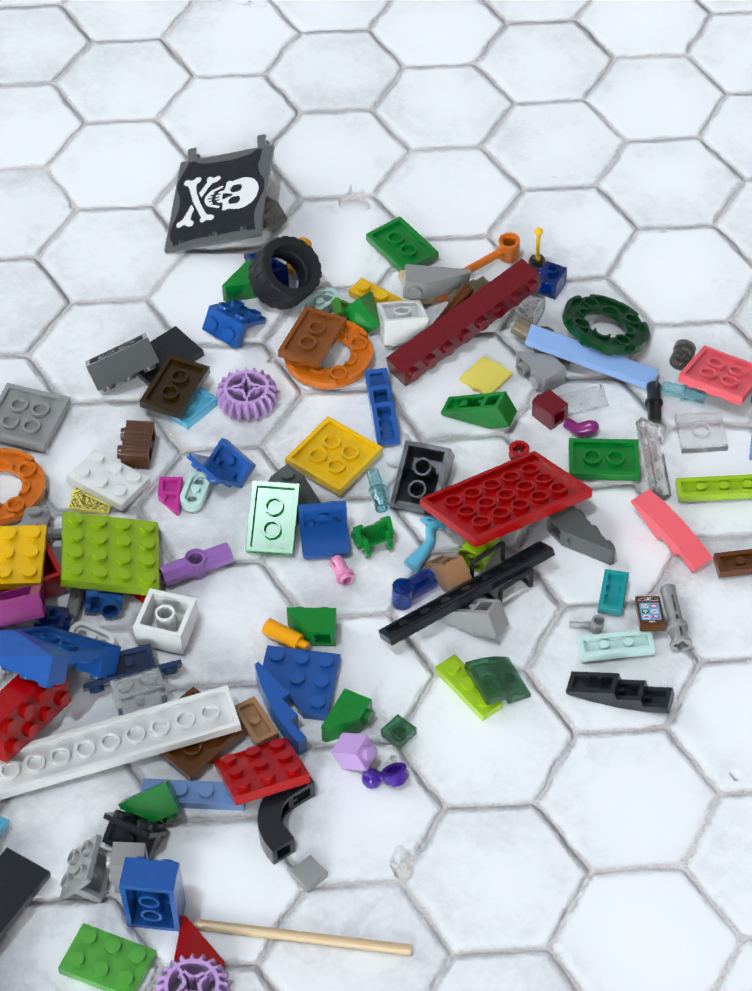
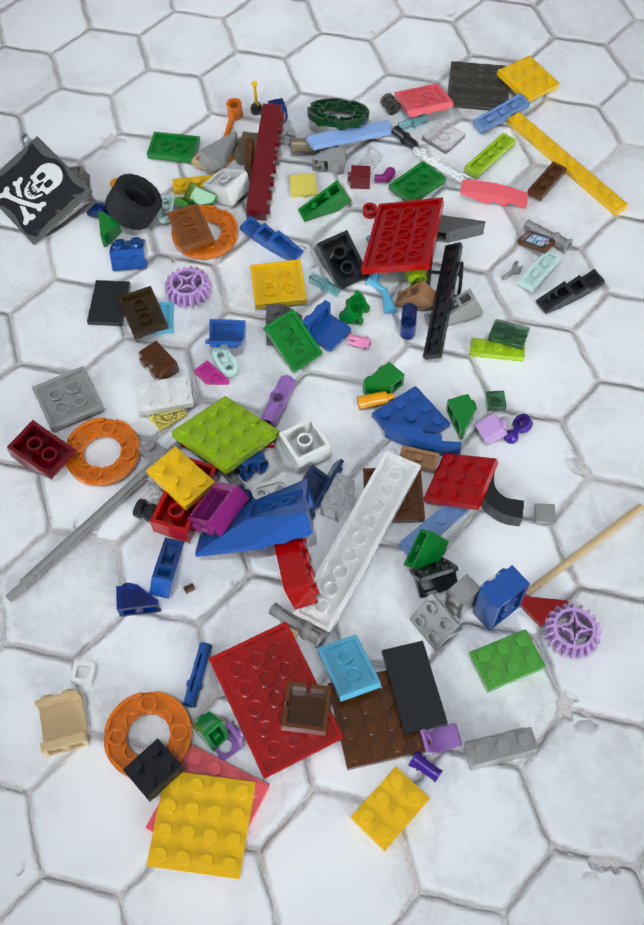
camera: 45 degrees left, 10 degrees up
(122, 362) = (92, 321): dark grey slope -> none
(613, 592) = (505, 245): teal plate -> none

